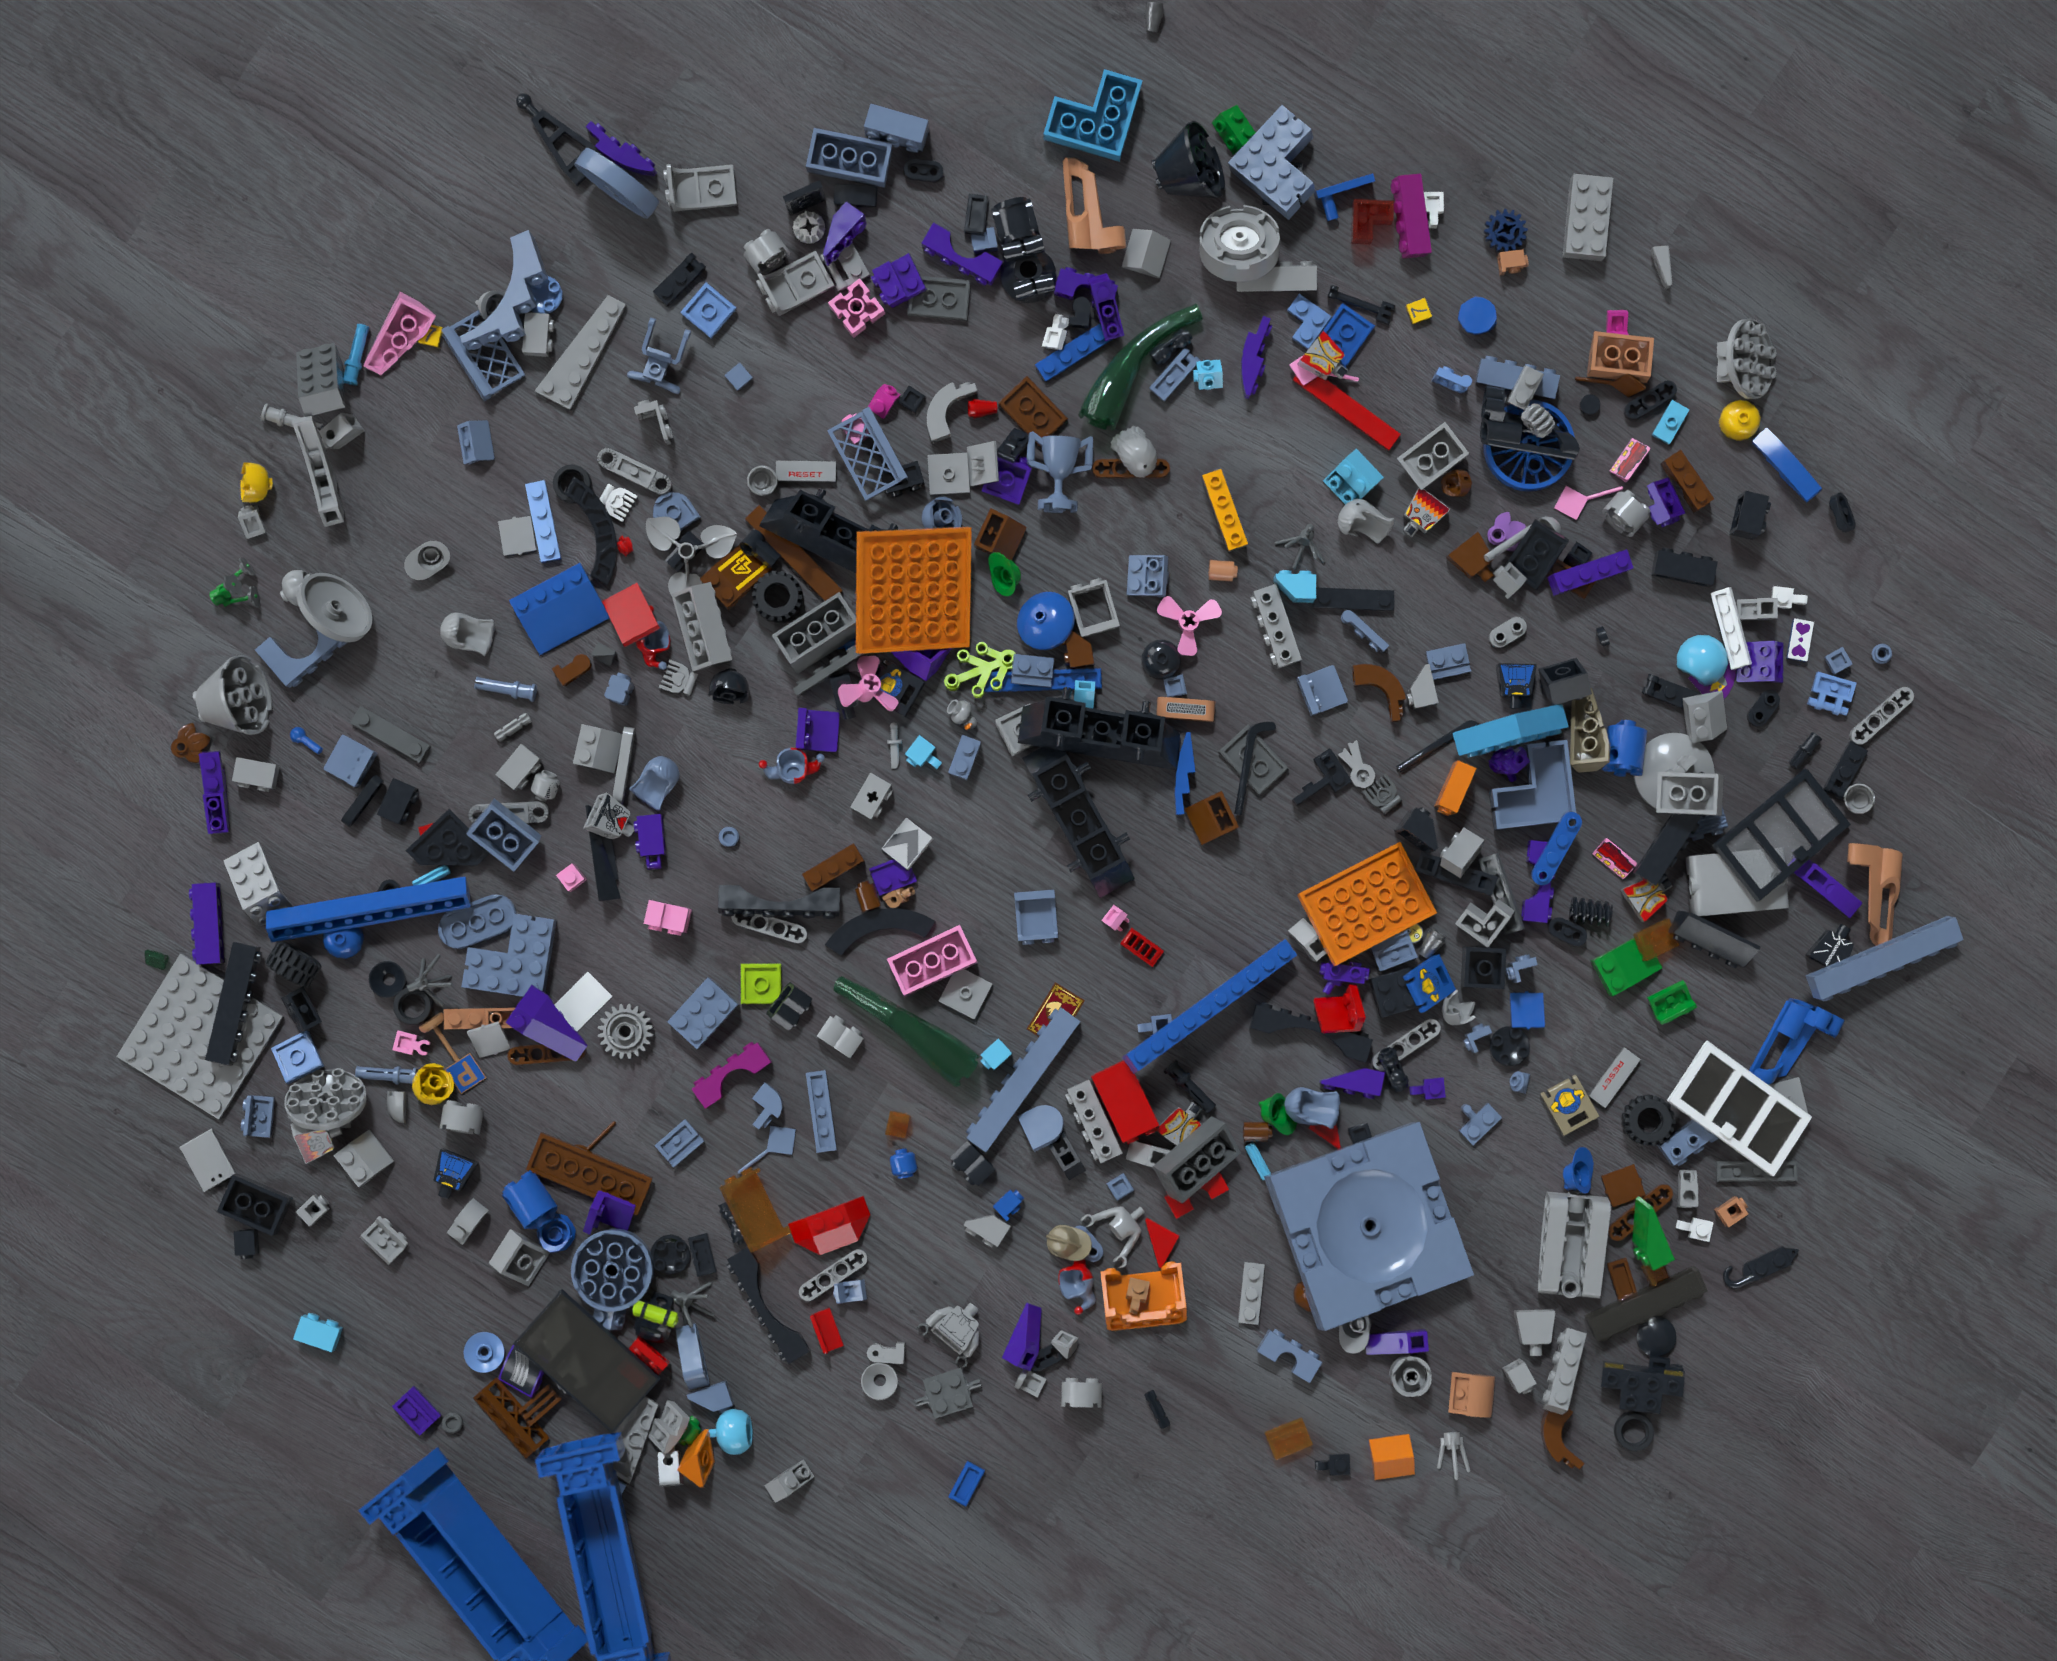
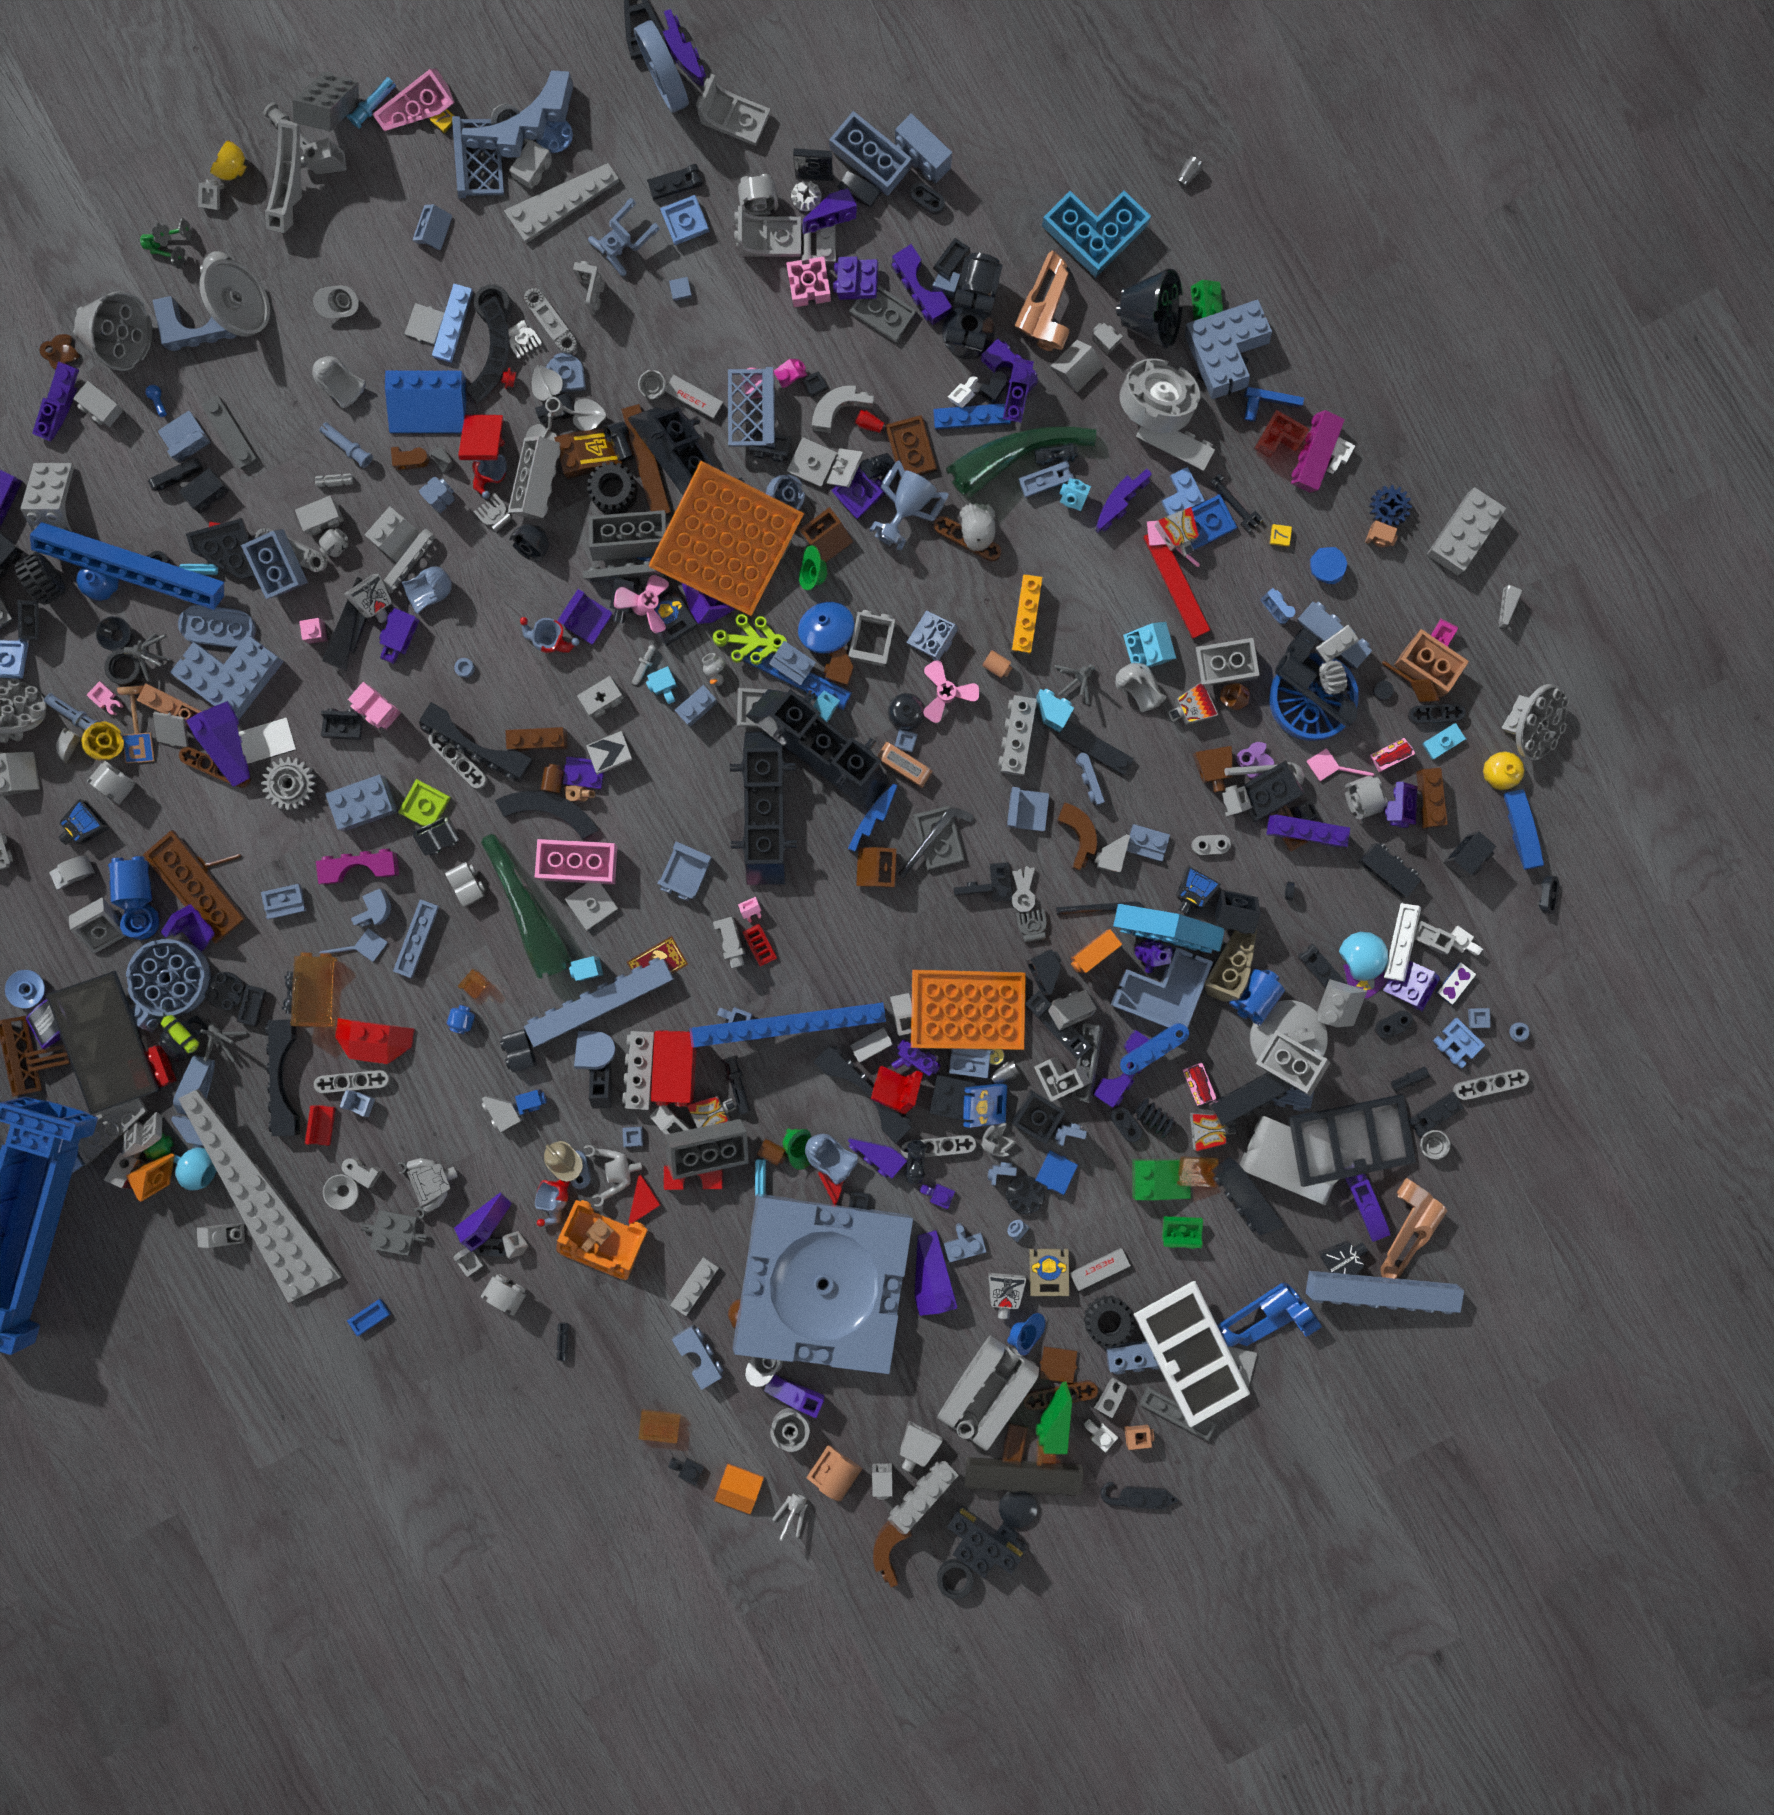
camera: 30 degrees right, 0 degrees up
(644, 950) = (341, 724): none -> black bracket
(848, 1453) = (282, 1240): none -> light grey wing
(1115, 957) = (731, 942): none -> light grey hips
(1159, 213) = (1106, 337): none -> light grey brick
(1294, 984) = (871, 1044): none -> light grey slope
(1468, 1172) = (932, 1280): none -> dark purple wedge
(1539, 1144) = (1005, 1292): none -> light grey torso

